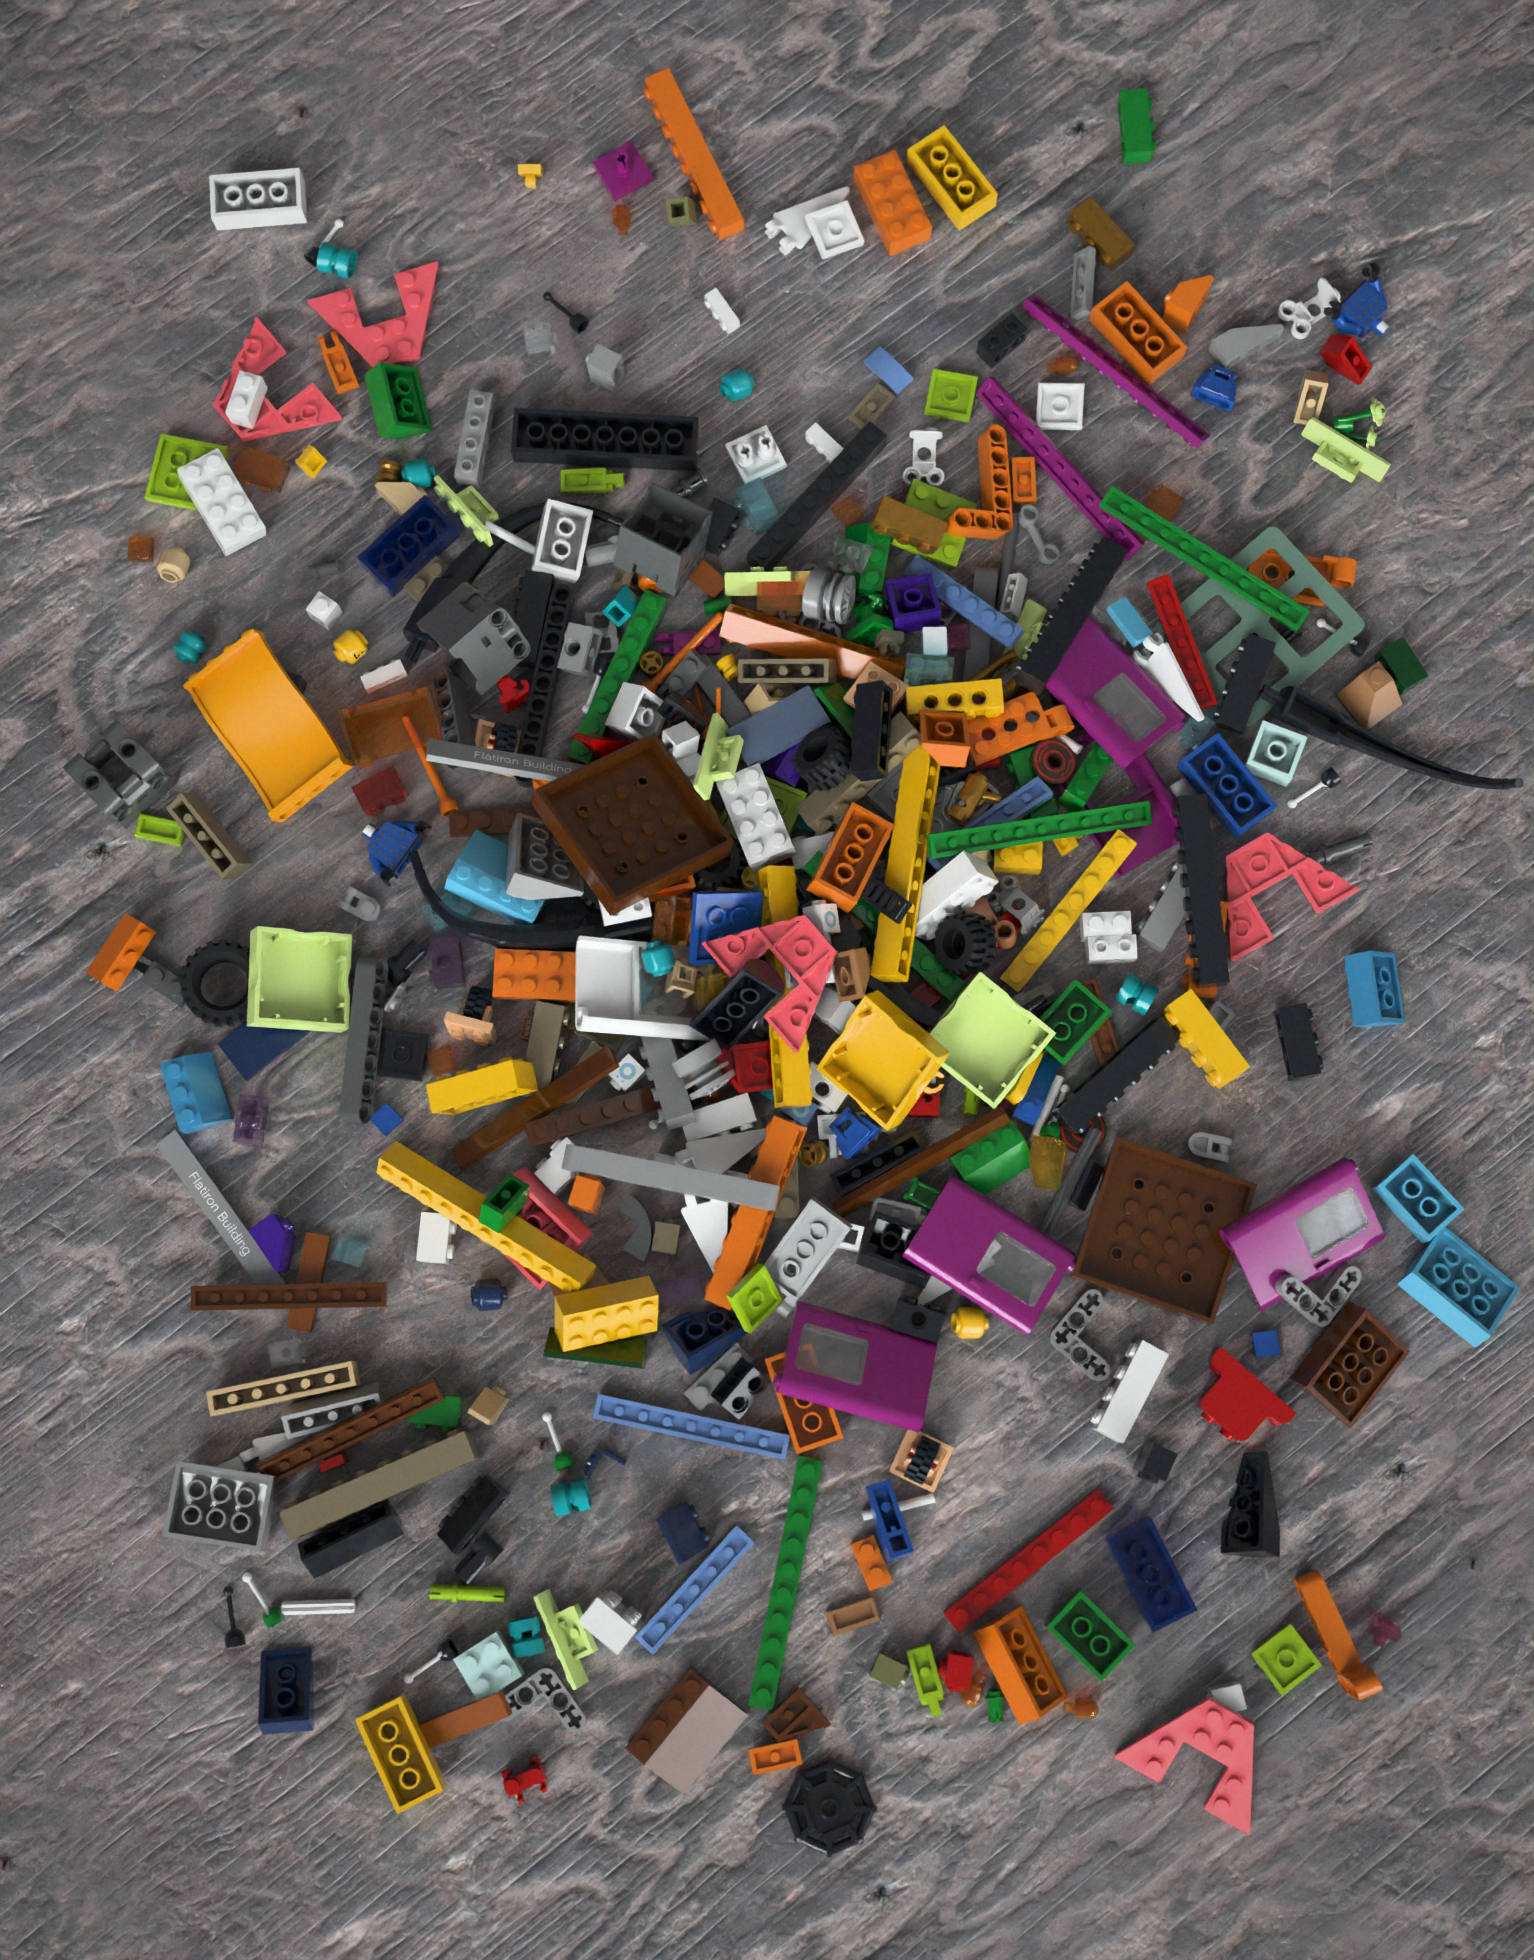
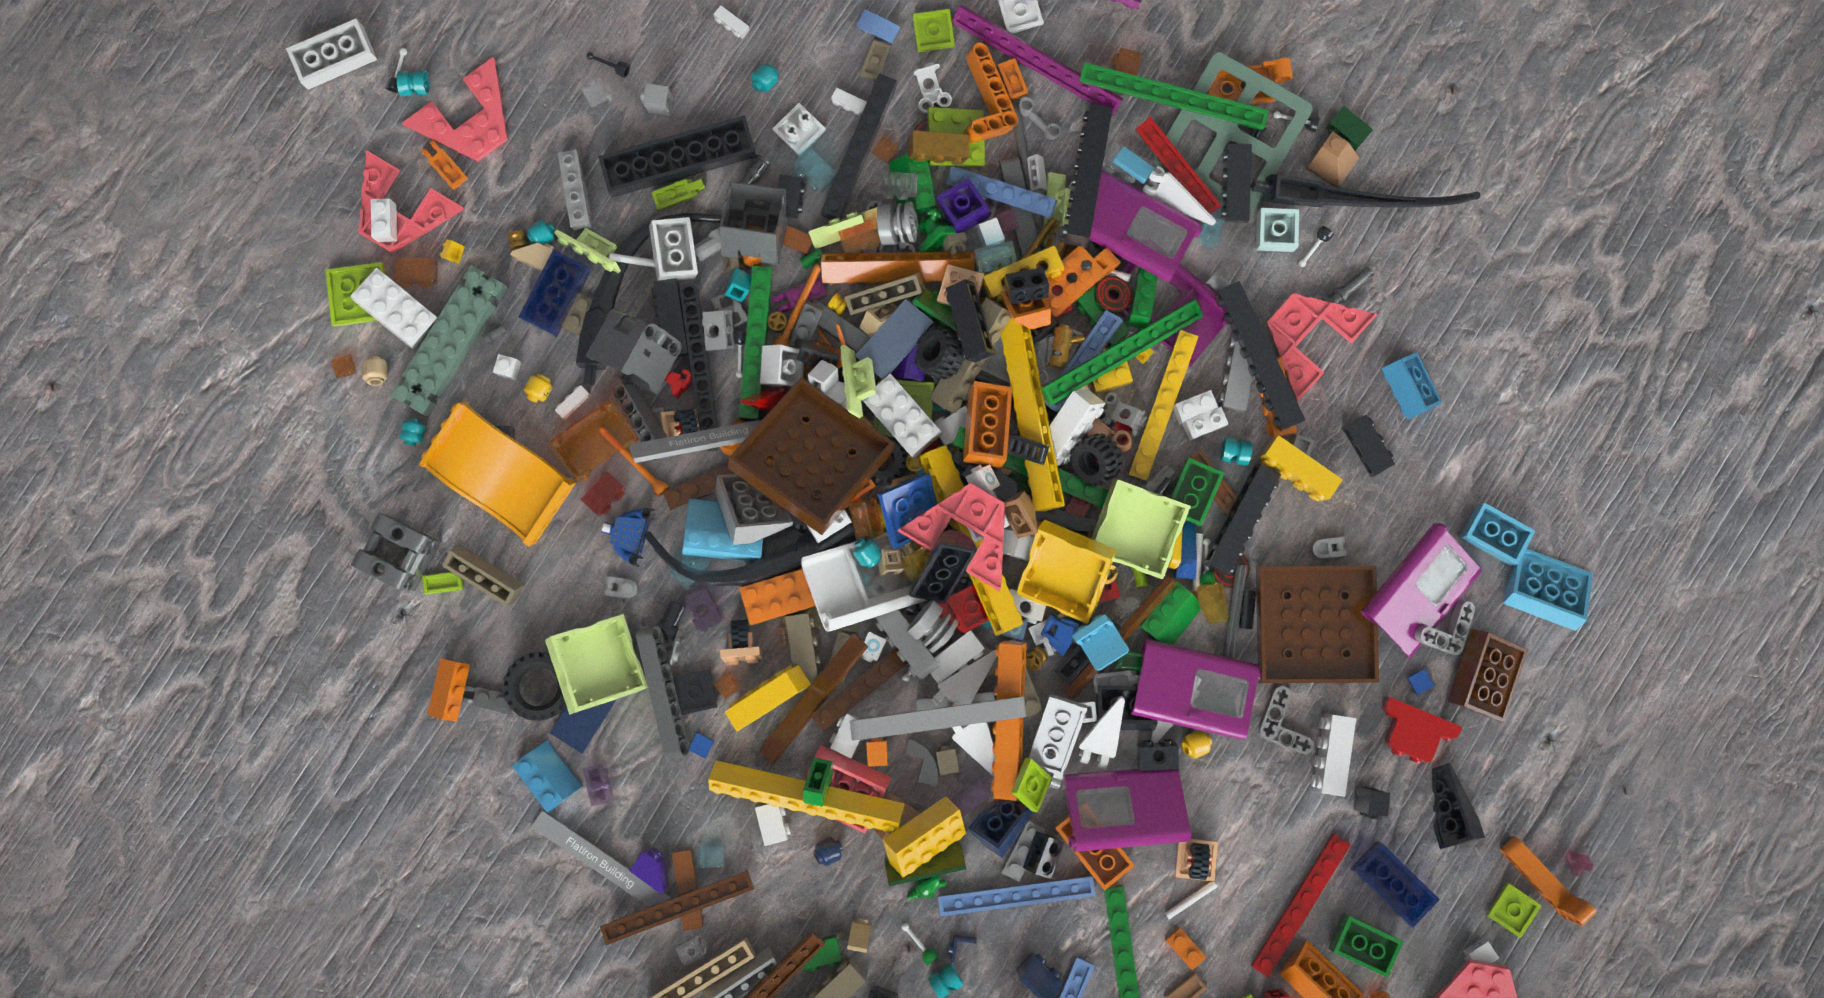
camera: 25 degrees left, 5 degrees up
(270, 559) = (449, 341): none -> sand green brick
(397, 401) = (503, 180): green slope -> none
(589, 1377) = (926, 887): none -> green piece
(860, 1271) = (1103, 736): none -> white flag
(889, 1521) = (1189, 915): blue slope -> none
(895, 1156) = (1101, 642): none -> medium azure bracket
(951, 712) = (1026, 285): none -> black brick
(1230, 787) = (1254, 268): blue brick -> none

